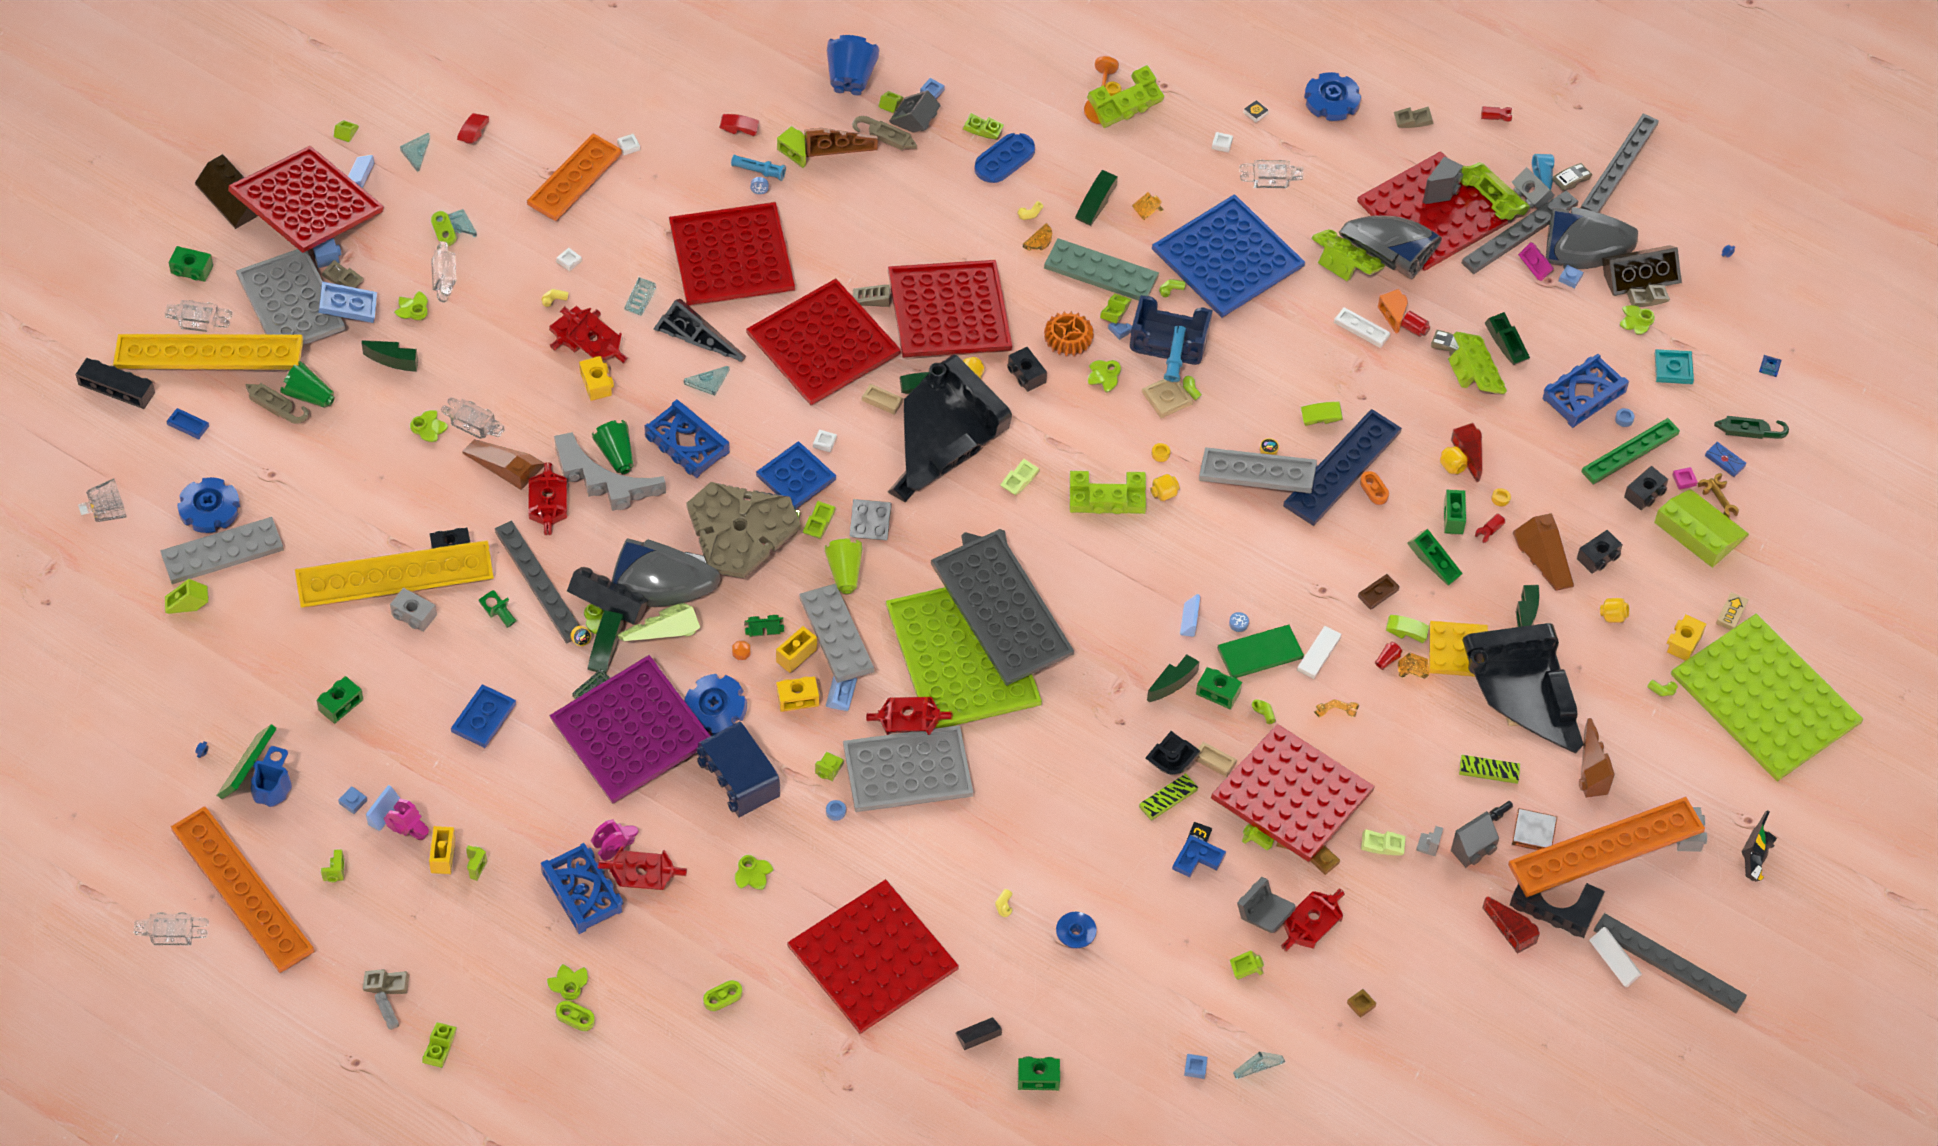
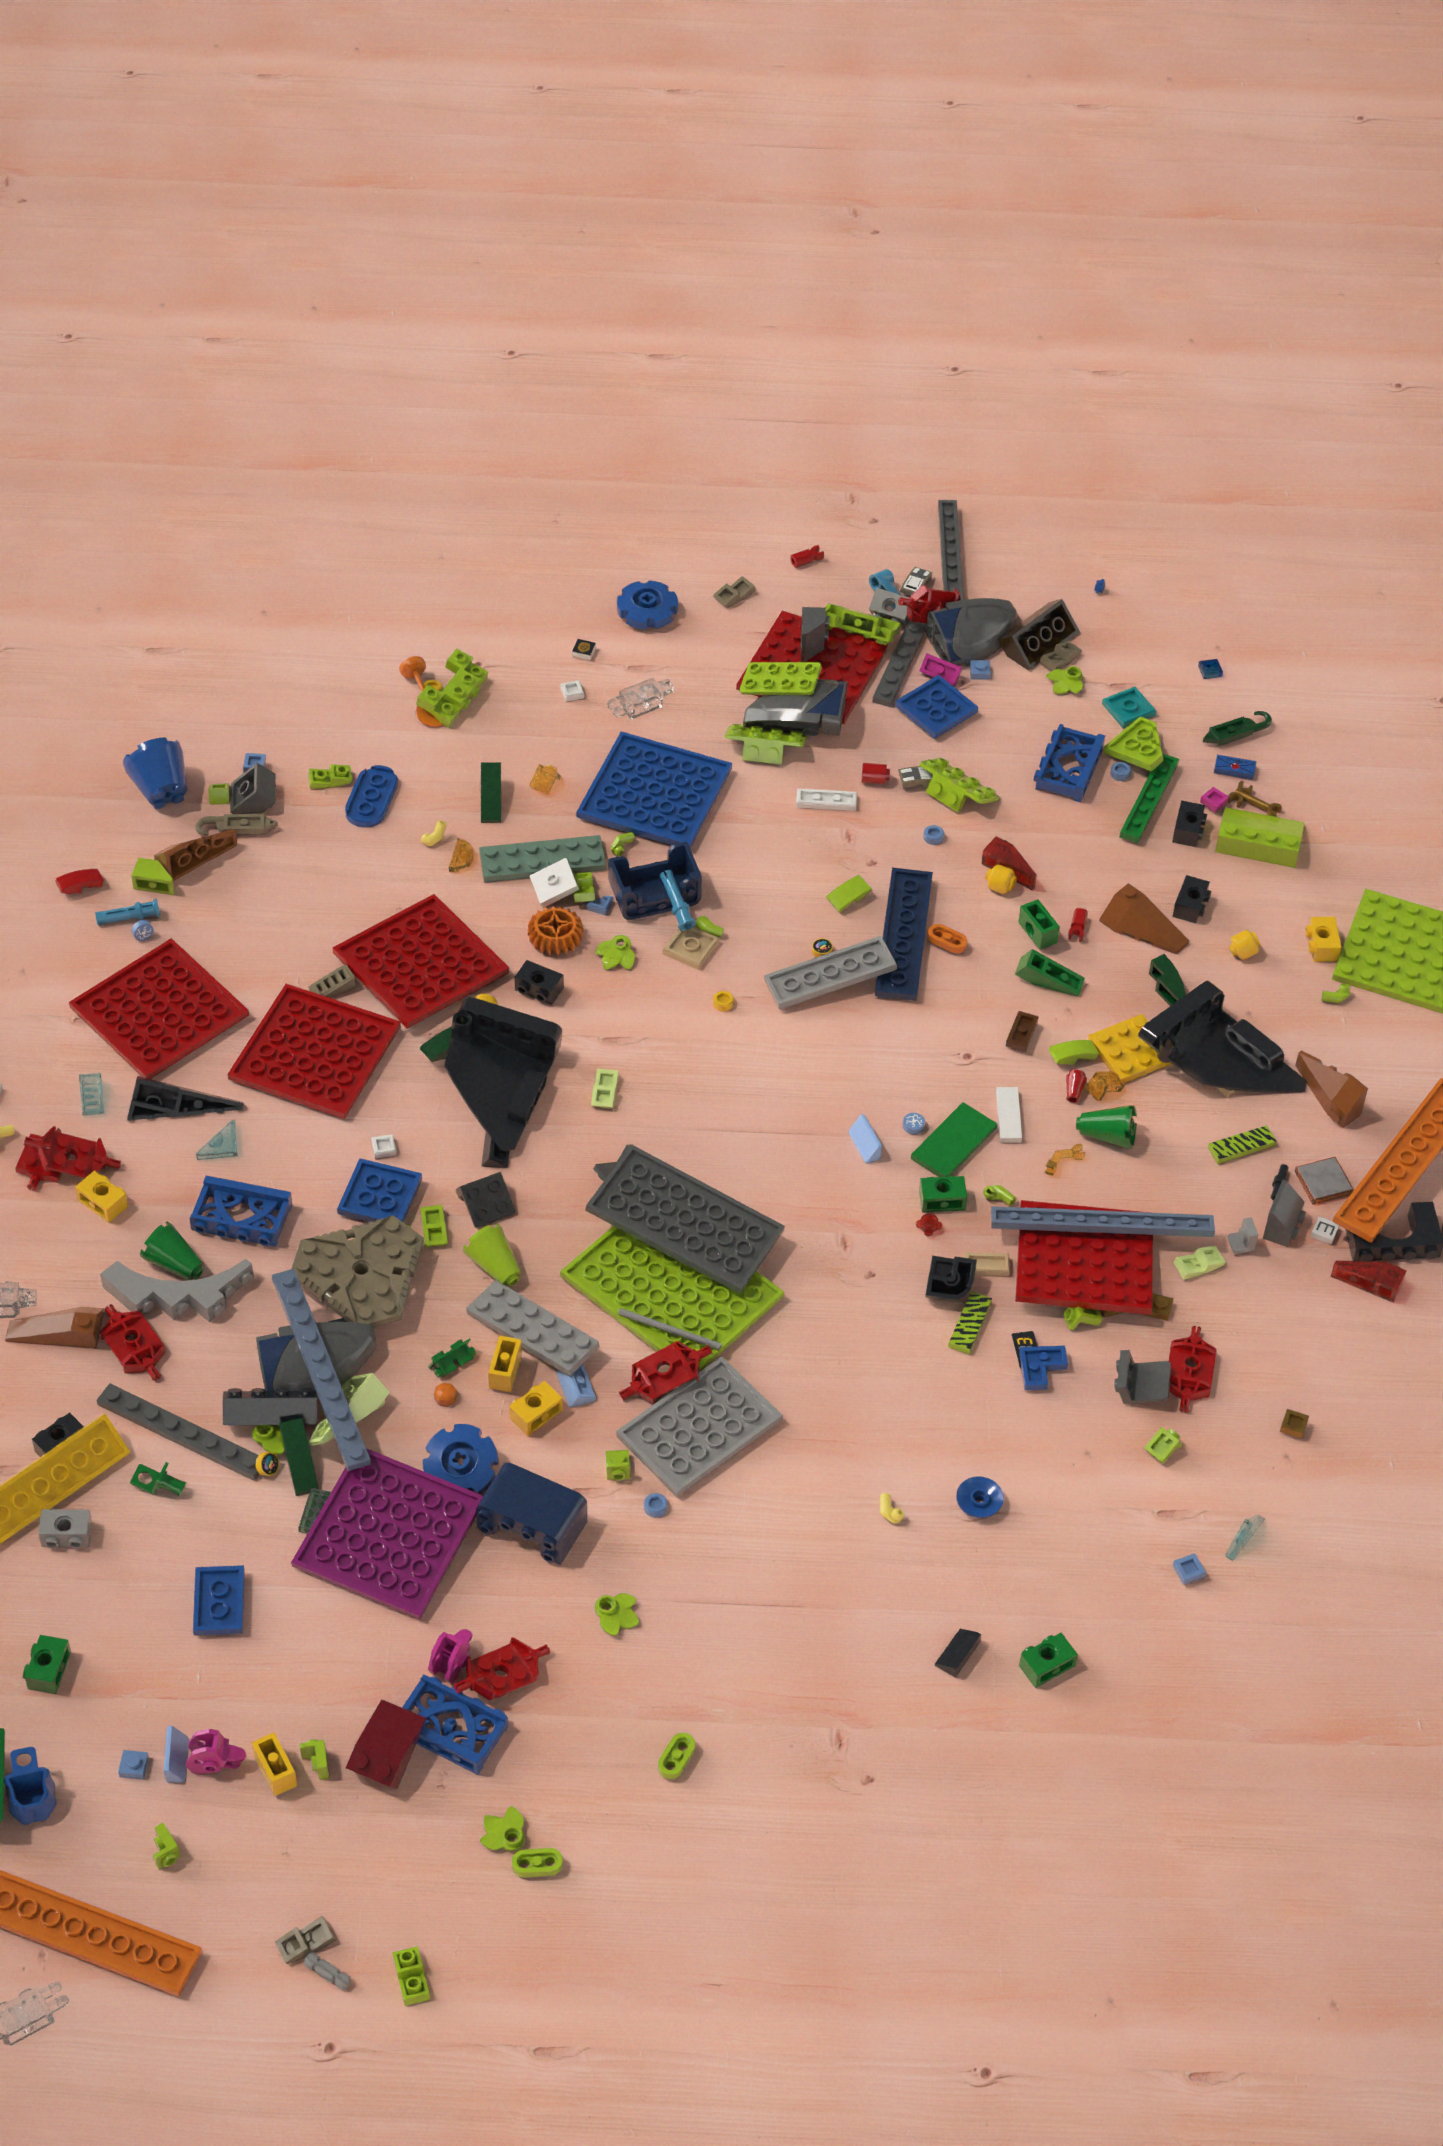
camera: 30 degrees left, 5 degrees down
(524, 878) = (386, 1744): none -> dark red slope
(655, 585) = (321, 1370): none -> sand blue plate
(872, 956) = (797, 1632): red plate -> none
(882, 399) = (413, 1079): tan tile -> none
(956, 710) = (671, 1329): none -> light grey axle
(1094, 294) = (554, 882): none -> white plate
(1107, 498) = (703, 1067): lime bracket -> none
(1165, 487) = (754, 1030): yellow head -> none
(1173, 678) = (894, 1206): dark green slope -> none
(1192, 701) = (929, 1219): none -> clear red plate
(1323, 772) = (1102, 1221): none -> sand blue plate
(1387, 209) = (780, 678): none -> lime bracket
(1391, 701) = (1110, 1125): none -> green cone
(1393, 308) = (845, 768): orange slope -> none
(1428, 397) = (933, 835): none -> medium blue tile
(1501, 497) = (1065, 893): yellow tile -> none
(1502, 870) = (1324, 1230): none -> white tile
(1507, 338) = (966, 748): dark green slope -> none
(1509, 291) = (936, 706): none -> blue plate
(1556, 197) = (927, 600): none -> red plate
(1653, 401) = (1137, 745): none -> lime plate
(1732, 611) = (1342, 897): tan tile -> none

